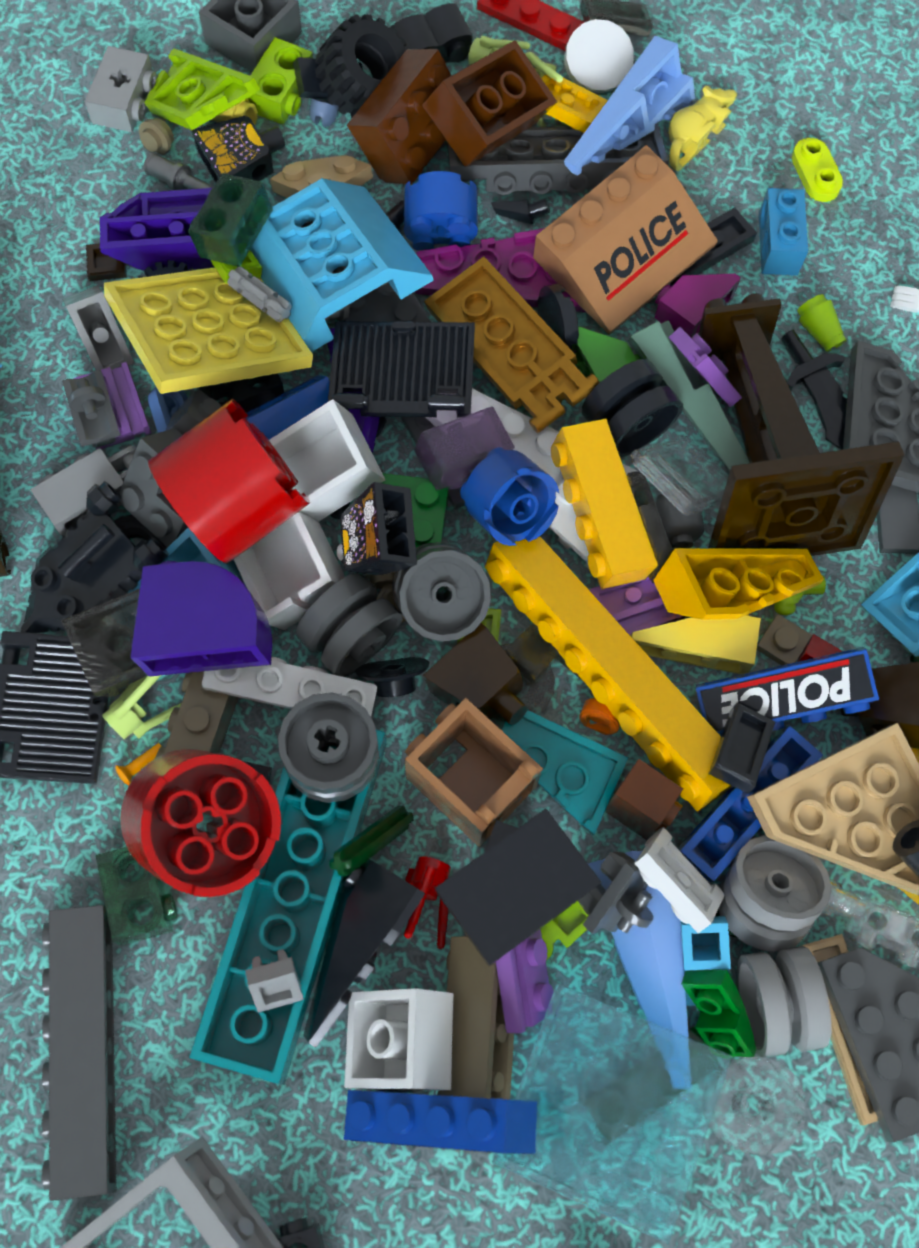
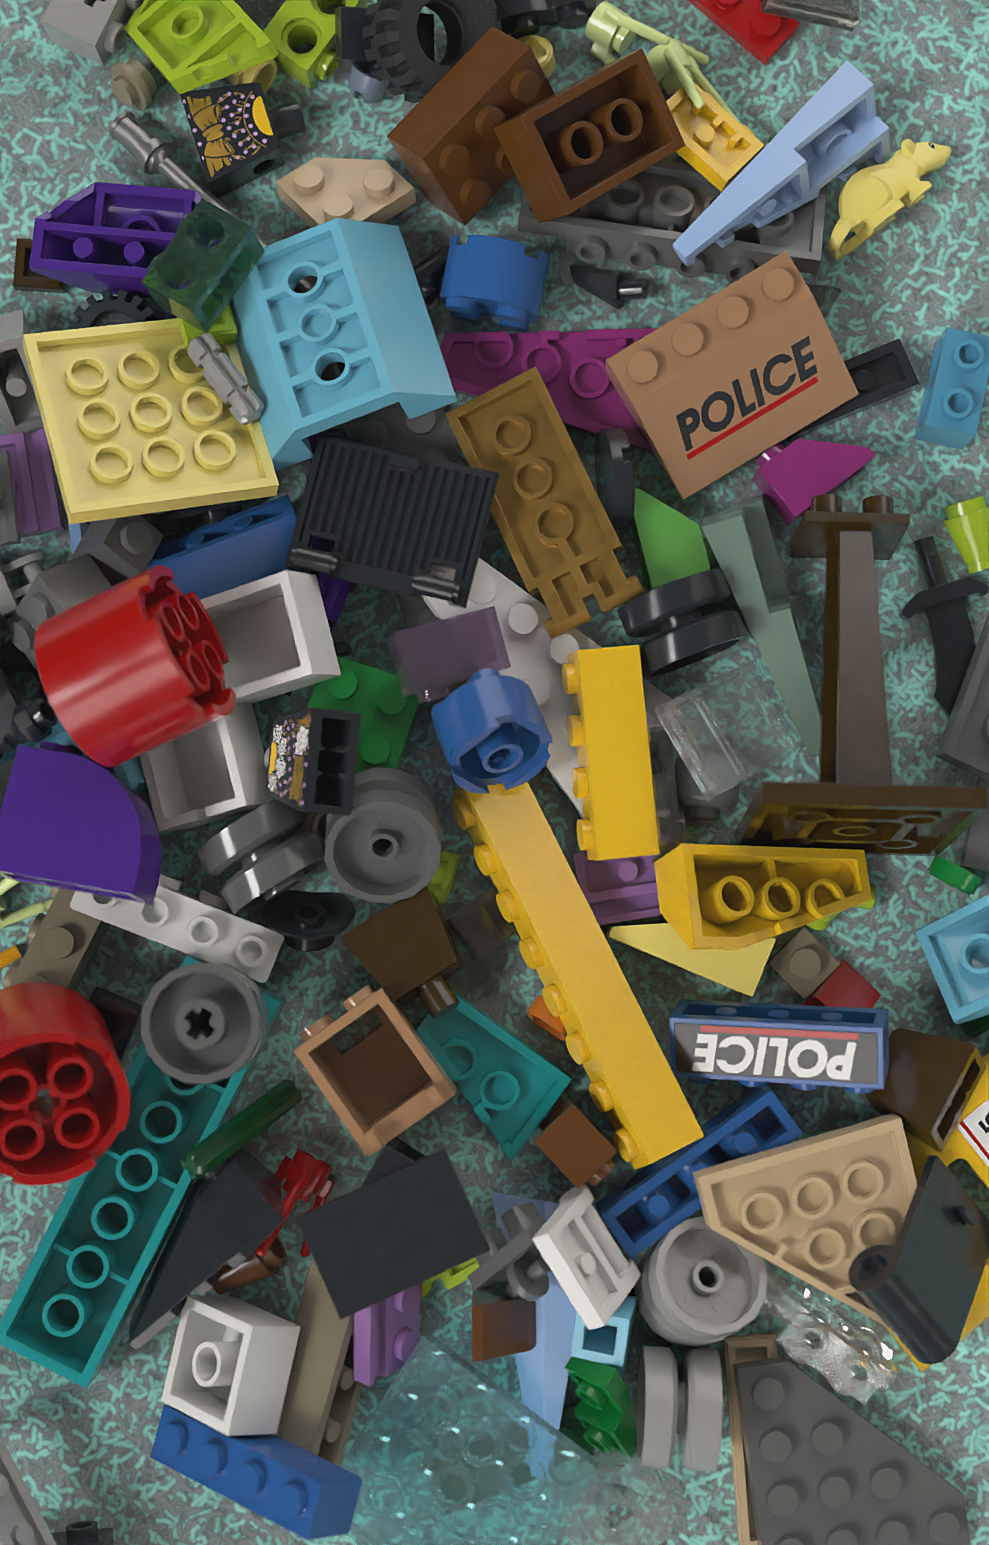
camera: 15 degrees right, 15 degrees up
(274, 983) = (97, 1283): light grey tile -> none
(396, 961) = (252, 1269): none -> reddish brown cone
(598, 56) = (769, 61): white tile -> none
(617, 959) = (501, 1325): none -> reddish brown slope
(710, 369) = (794, 581): medium lavender plate -> none
(742, 748) = (702, 1112): black tile -> none
(879, 554) = (954, 875): none -> green tile

